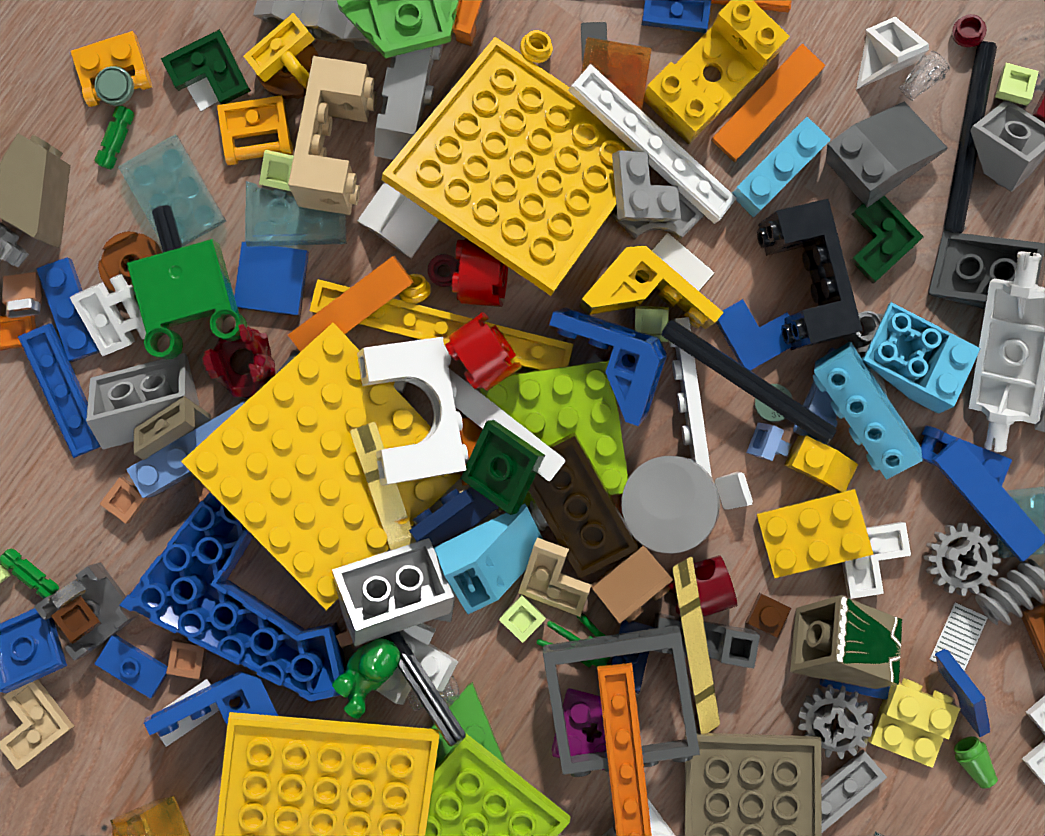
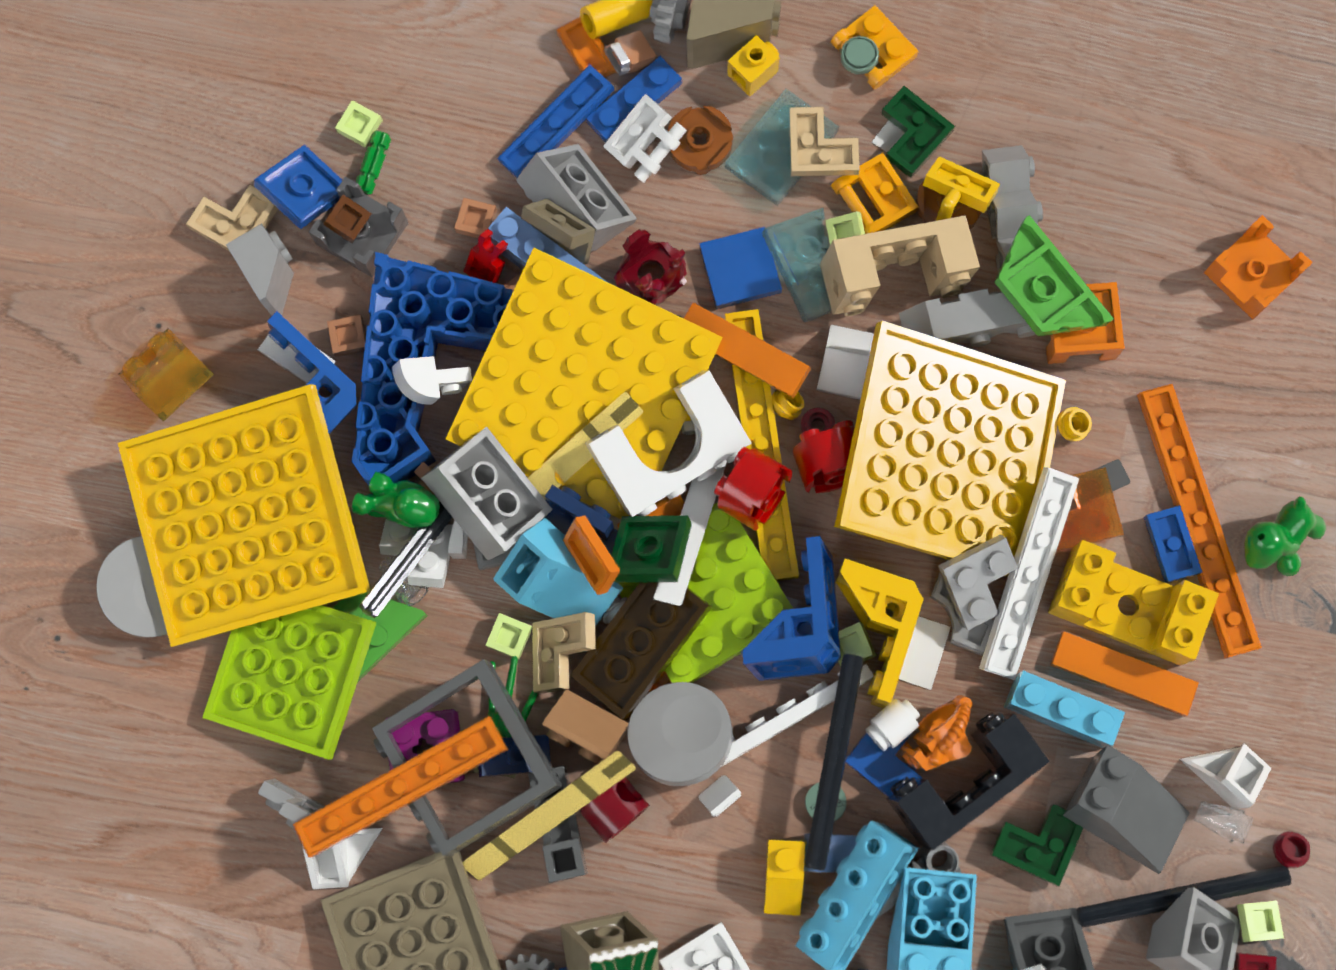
camera: 75 degrees right, 10 degrees down
(68, 593) = (369, 202): clear tile -> none
(83, 186) = (753, 65): none -> yellow brick
(91, 713) = (264, 265): none -> light grey slope
(114, 137) = (812, 75): green axle -> none
(132, 666) = (321, 289): blue plate -> none
(168, 508) = (484, 258): none -> red plate
(182, 287) = (696, 188): green piece -> none
(194, 166) = (815, 155): none -> tan plate
(264, 611) = (421, 381): none -> white brick
(488, 521) = (591, 555): none -> orange tile
(737, 320) = (893, 724): none -> white brick
(766, 285) = (941, 736): none -> orange piece
(768, 442) = (782, 809): medium blue tile -> none
(768, 615) = (608, 884): reddish brown plate -> none
(815, 533) = (710, 896): yellow plate -> none

